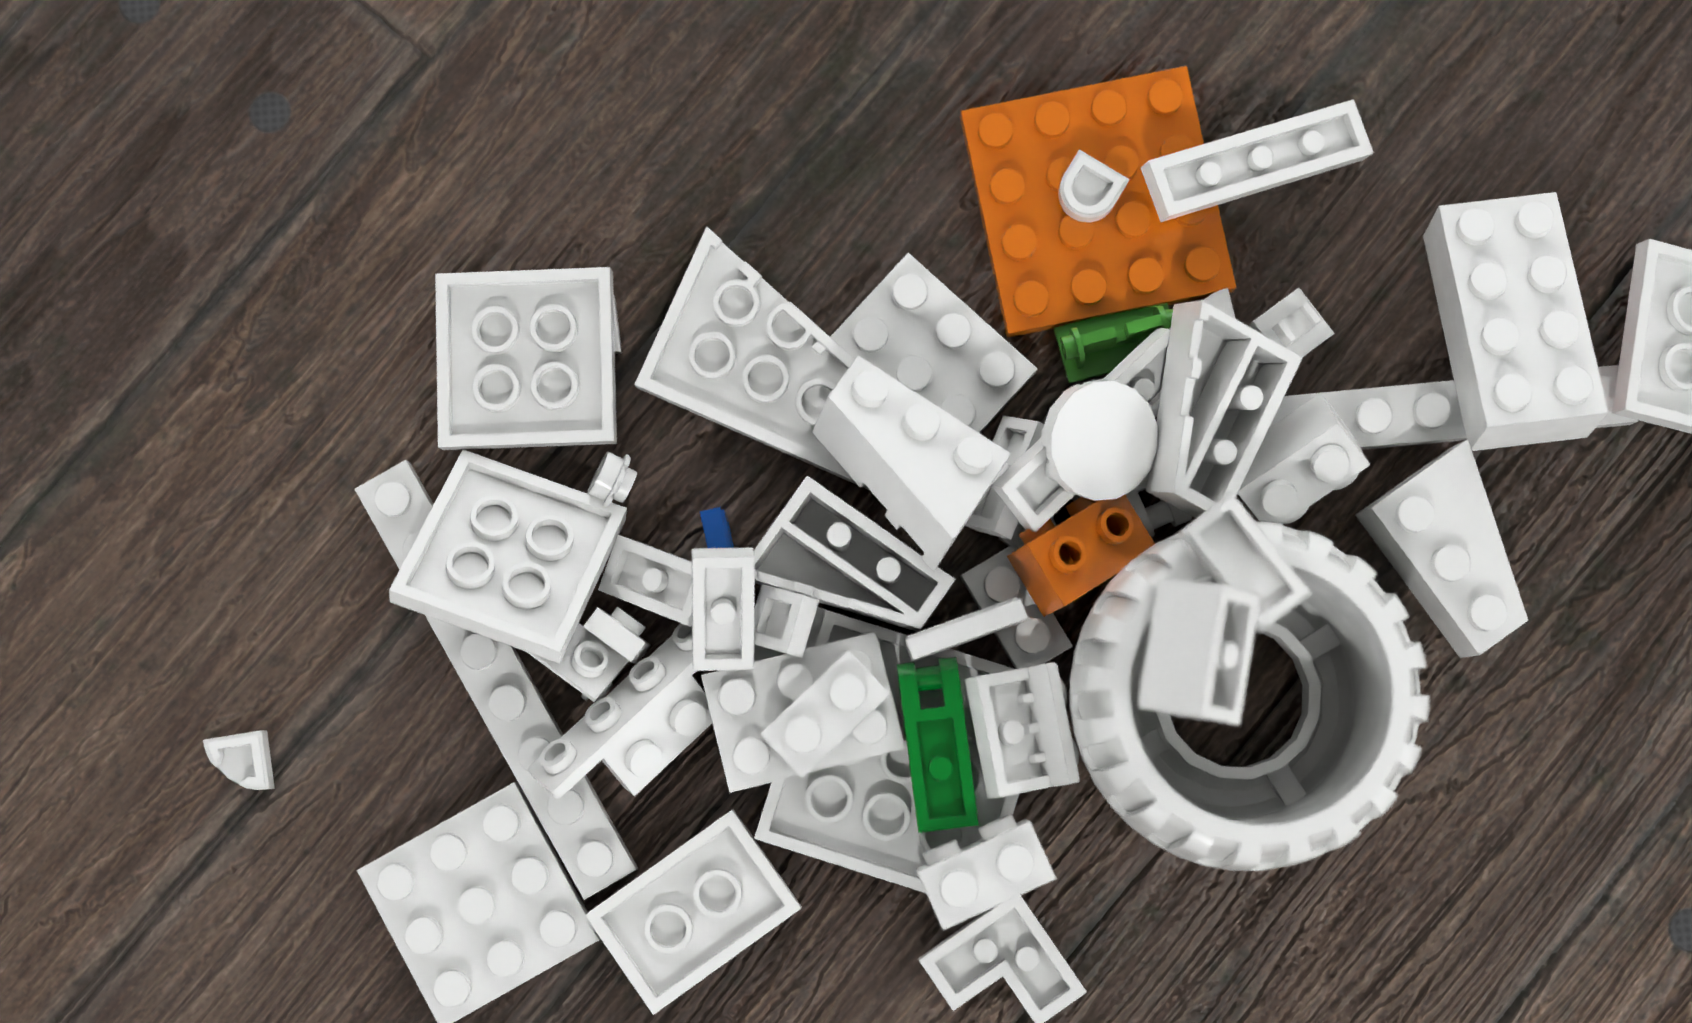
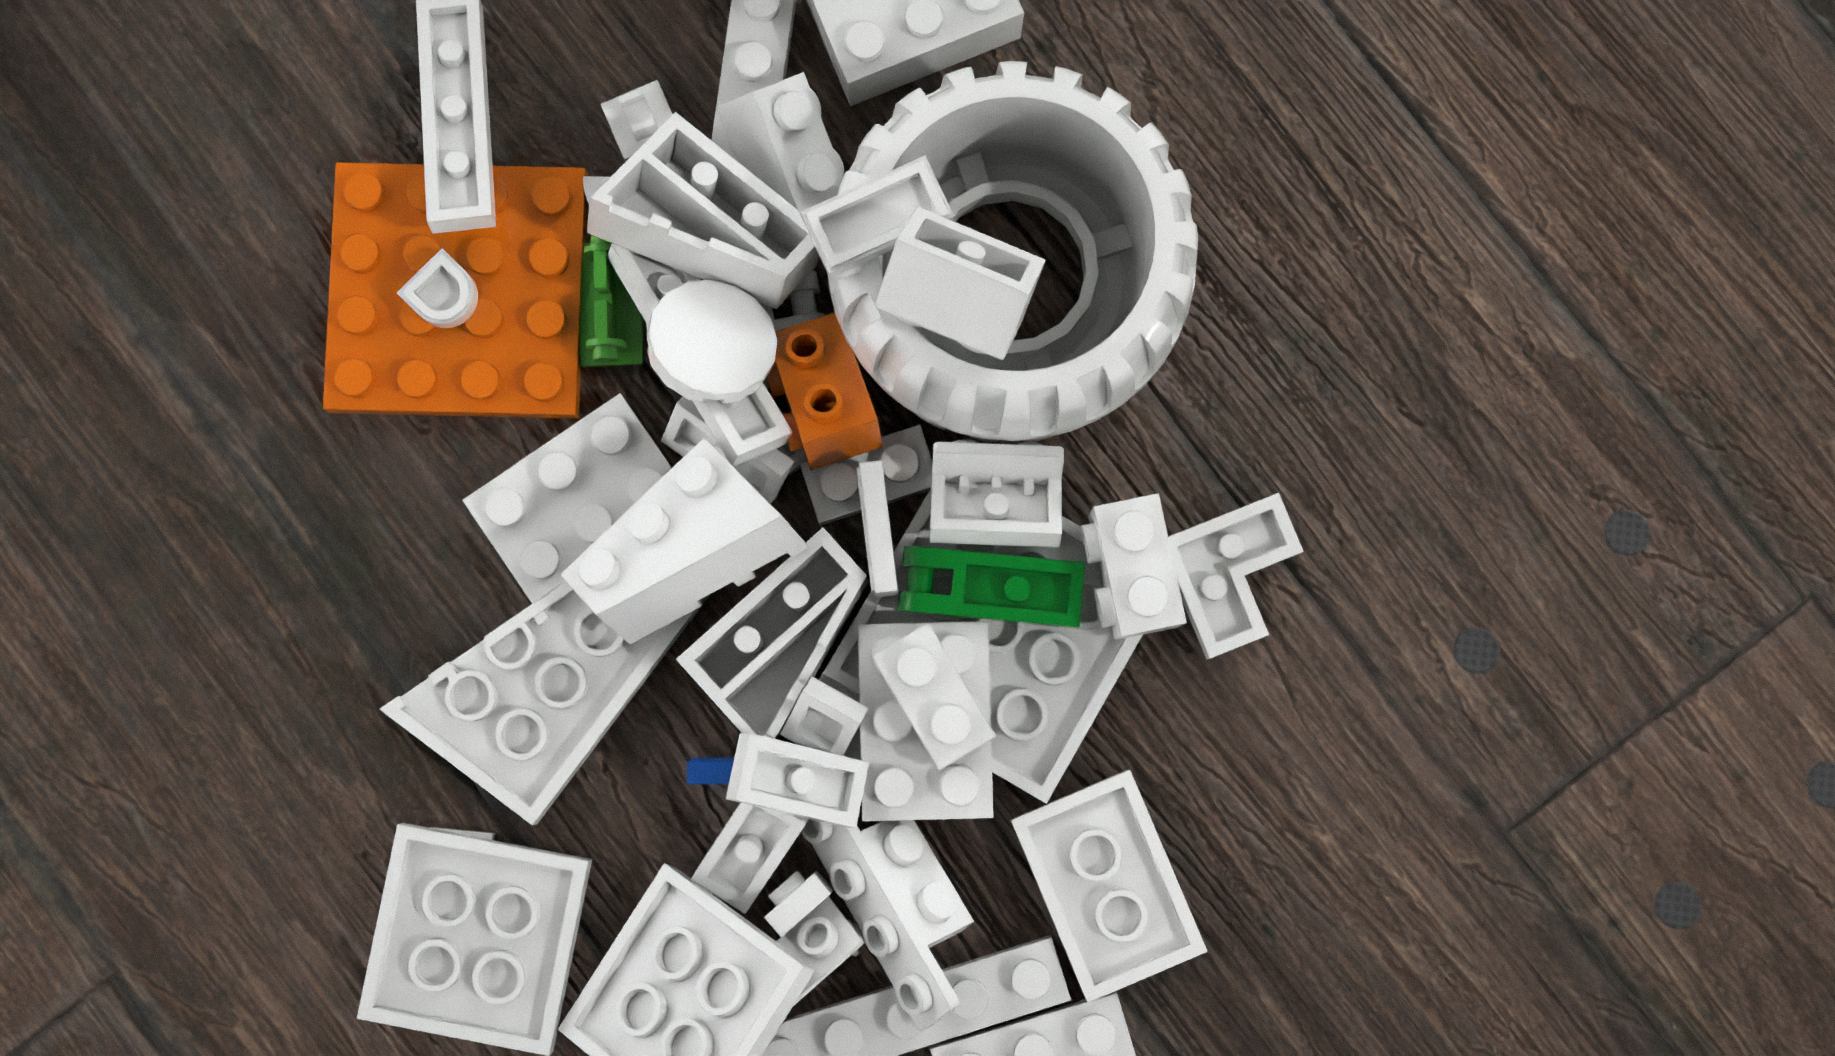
camera: 80 degrees left, 0 degrees up
(612, 479) = (629, 871): white plate -> none

